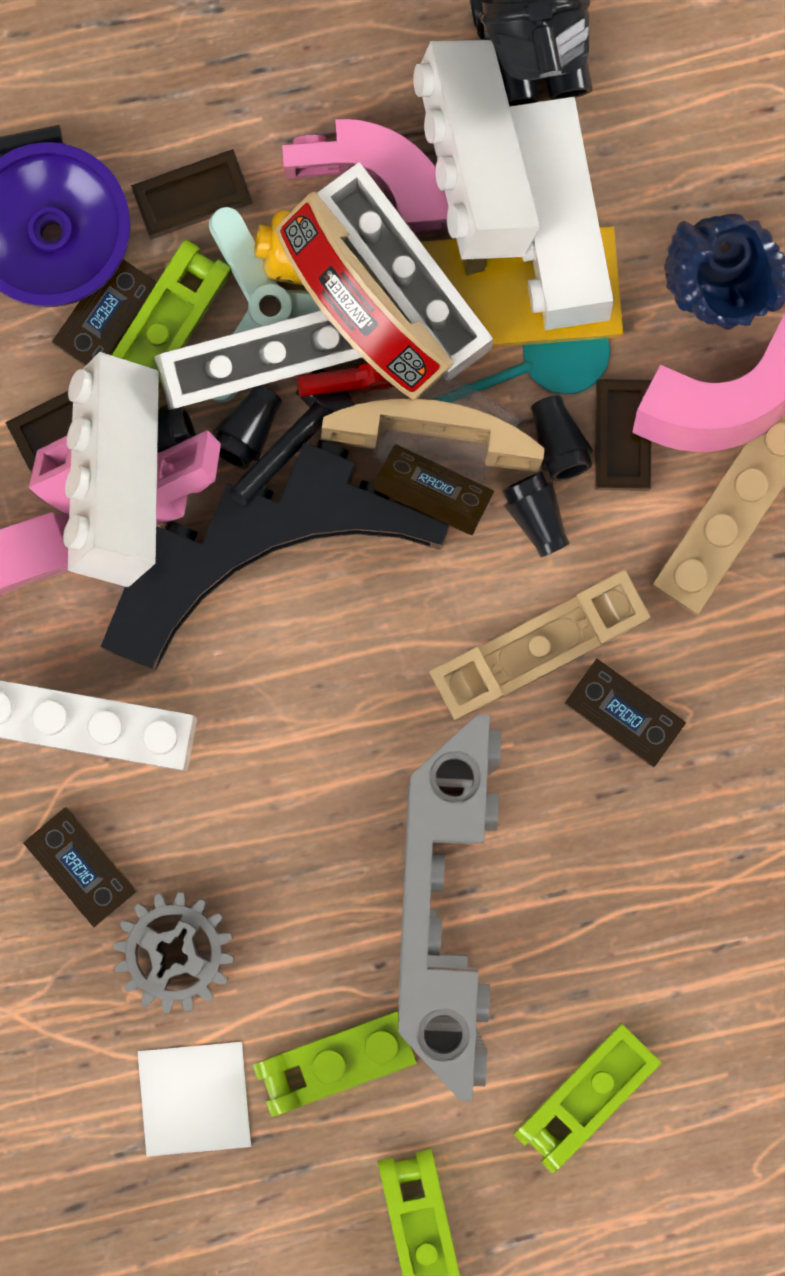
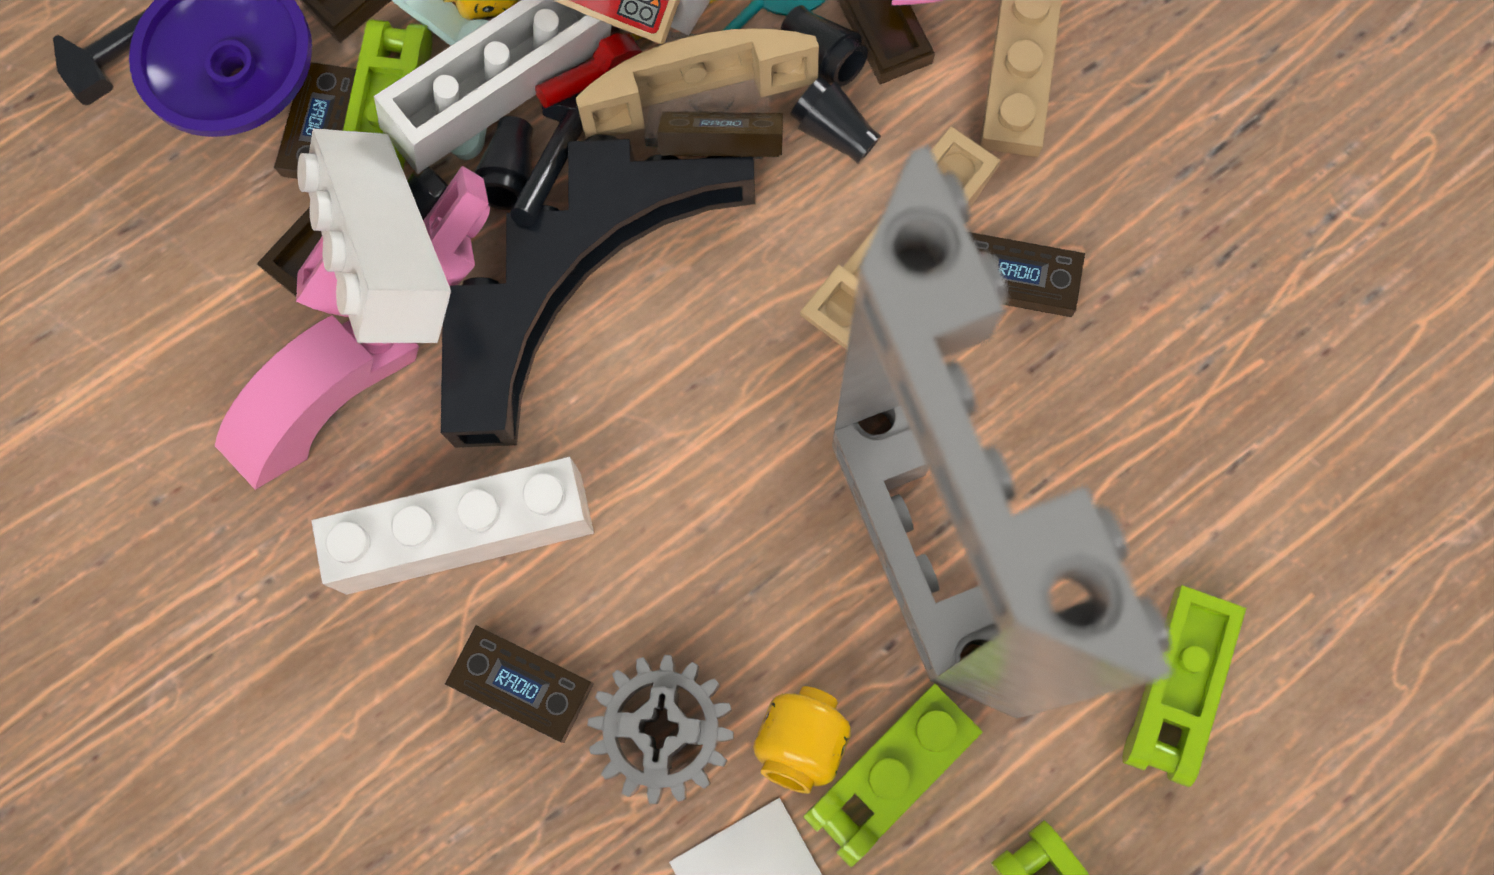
camera: 20 degrees left, 10 degrees down
(276, 1008) = (802, 740): none -> yellow head

